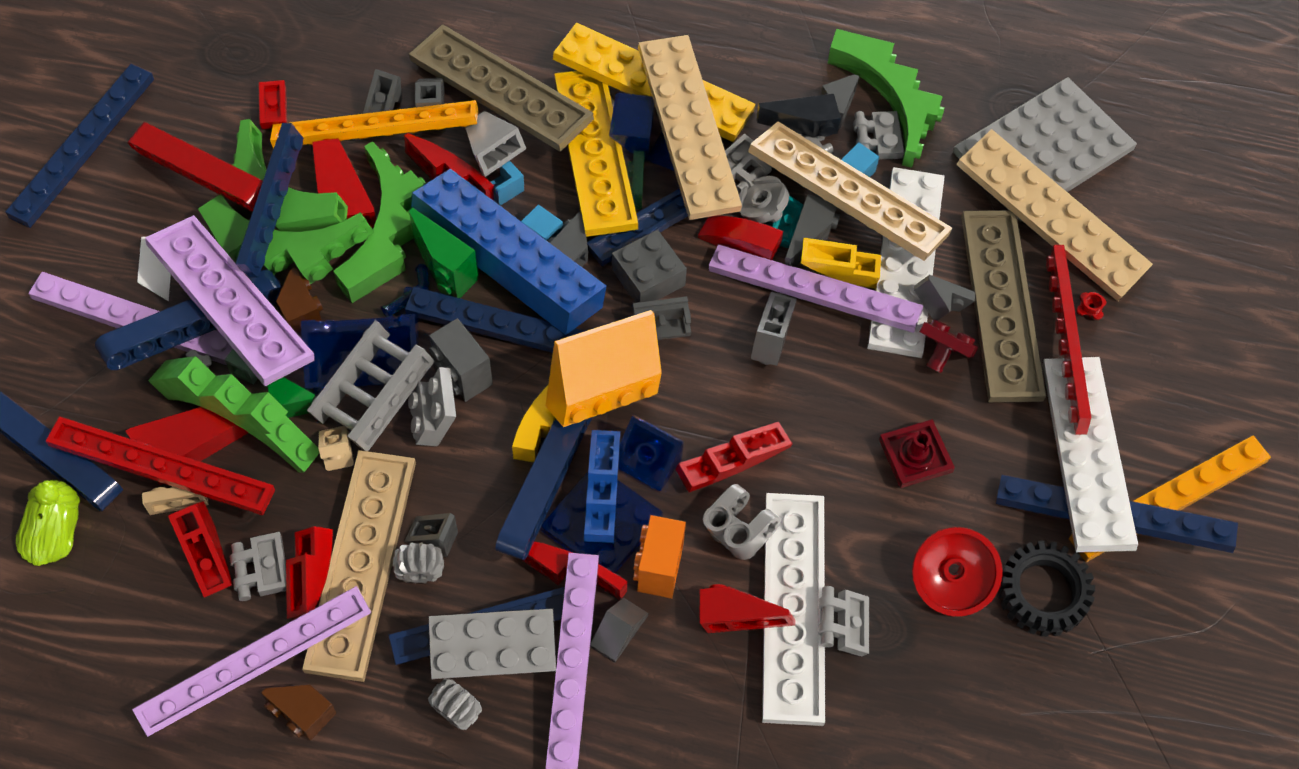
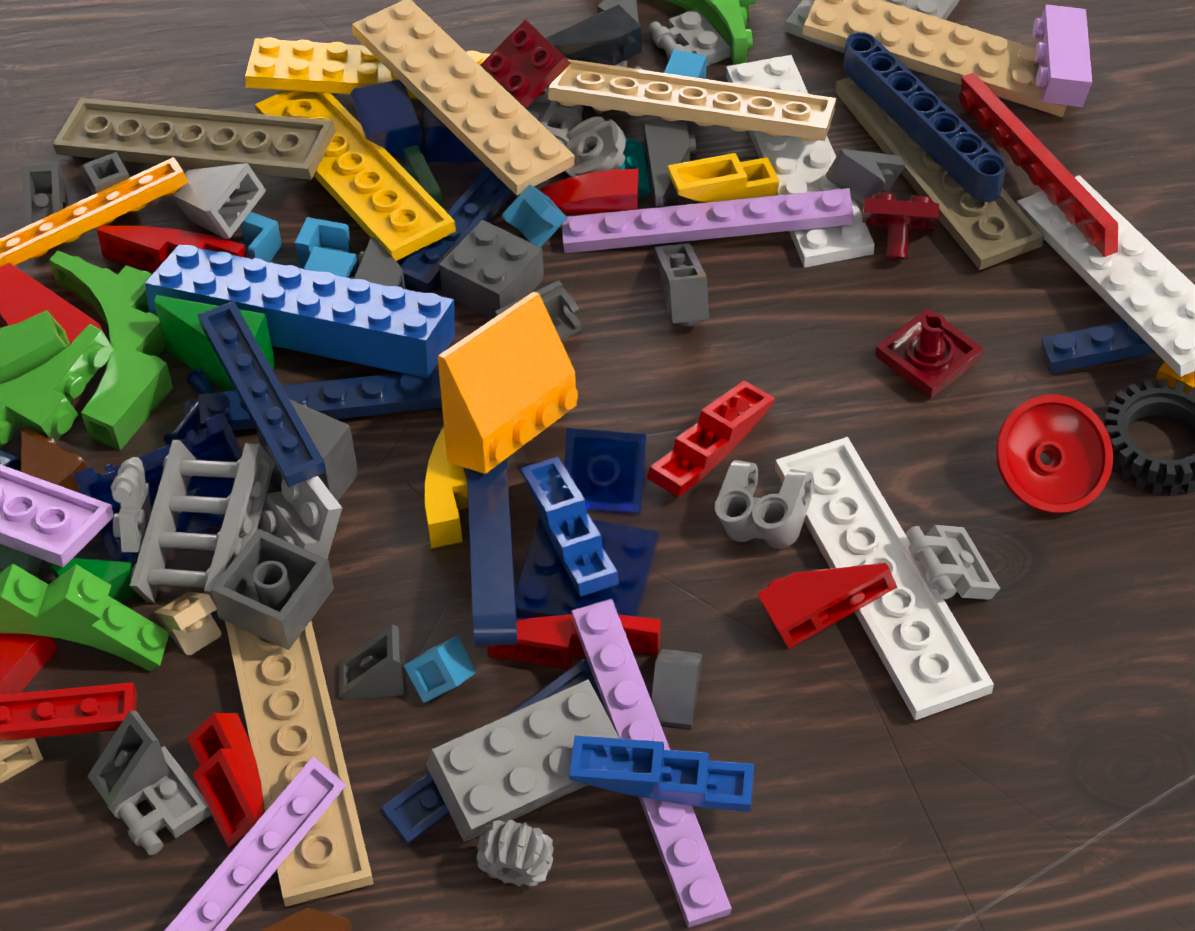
camera: 20 degrees left, 10 degrees down
(202, 547) = (65, 808): red slope -> none
(249, 537) = (128, 762): none -> dark grey slope
(332, 353) = (135, 507): none -> light grey plate
(390, 454) = (273, 589): none -> dark grey brick
(418, 563) = (375, 706): light grey gear -> none
(441, 312) = (262, 394): none -> dark blue plate
(474, 551) = (440, 669): none -> dark azure panel
(549, 198) = (321, 234): none -> dark azure panel
(568, 694) = (662, 775): none -> blue slope
(659, 556) = (688, 575): orange brick -> none
(700, 237) = (534, 215): none -> dark azure panel
(741, 119) = (525, 64): none -> dark red plate
(996, 229) = (924, 117): none -> dark blue beam
(1096, 301) = (1040, 126): red plate -> none
(1136, 257) = (1063, 55): none -> lavender brick

